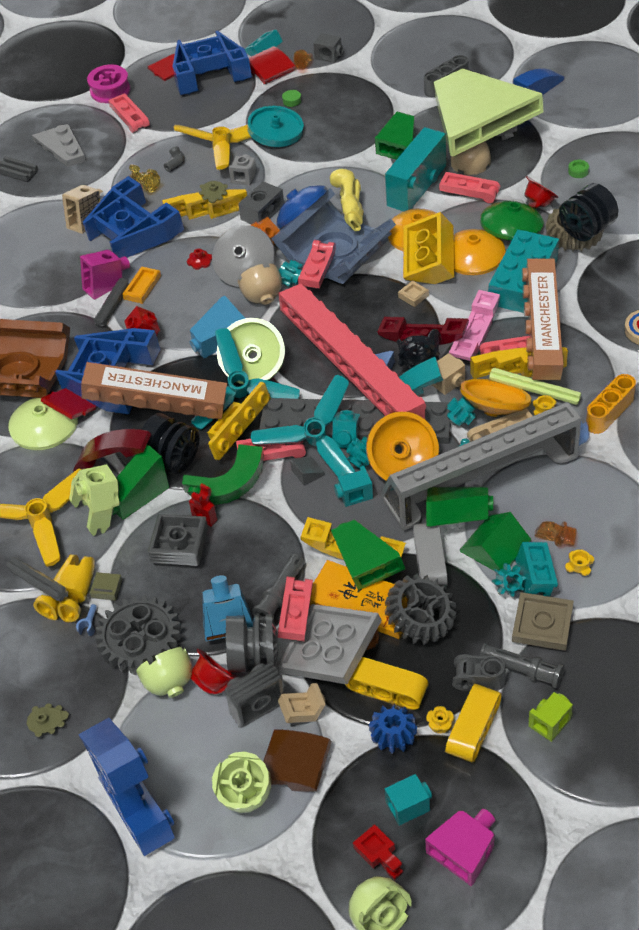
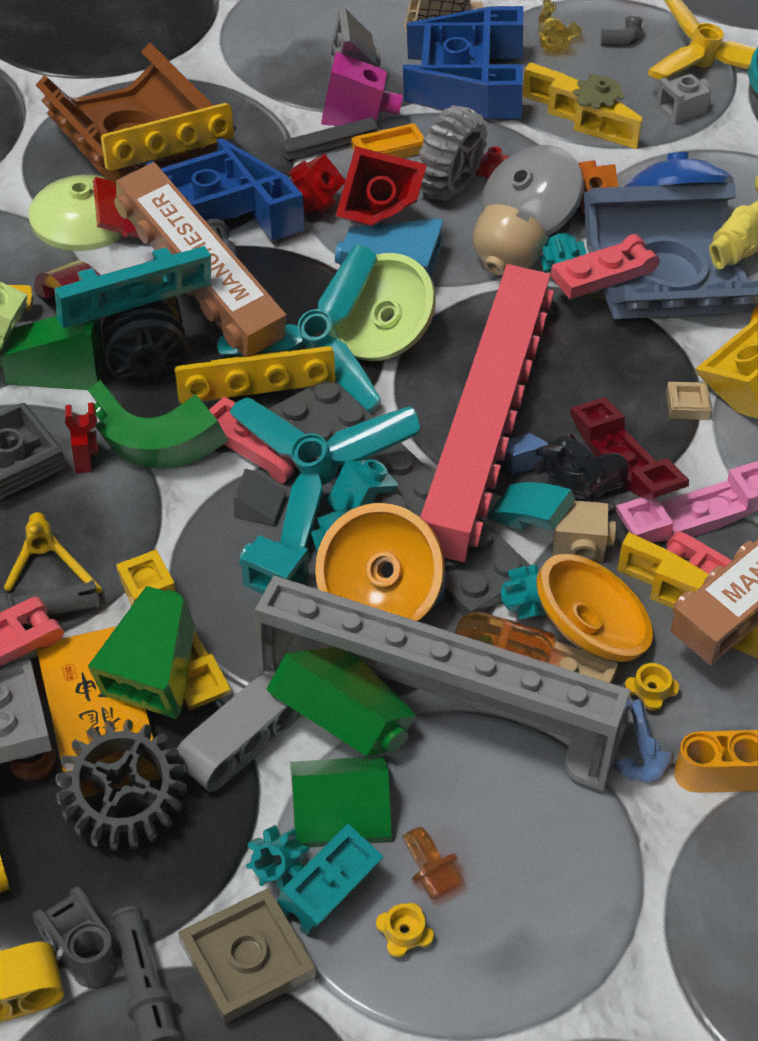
camera: 40 degrees right, 0 degrees up
(52, 353) = (167, 136): none -> yellow bracket
(70, 255) = (353, 40): none -> light grey slope
(164, 405) = (132, 286): none -> teal hinge
(184, 302) = (378, 187): none -> red slope
(187, 265) = (452, 152): none -> light grey gear
(242, 561) = (39, 541): none -> yellow plant
(261, 202) = (642, 146): dark grey brick -> none
(482, 429) = (507, 635): none -> clear orange arm
(535, 386) = (678, 654): yellowish green axle -> none

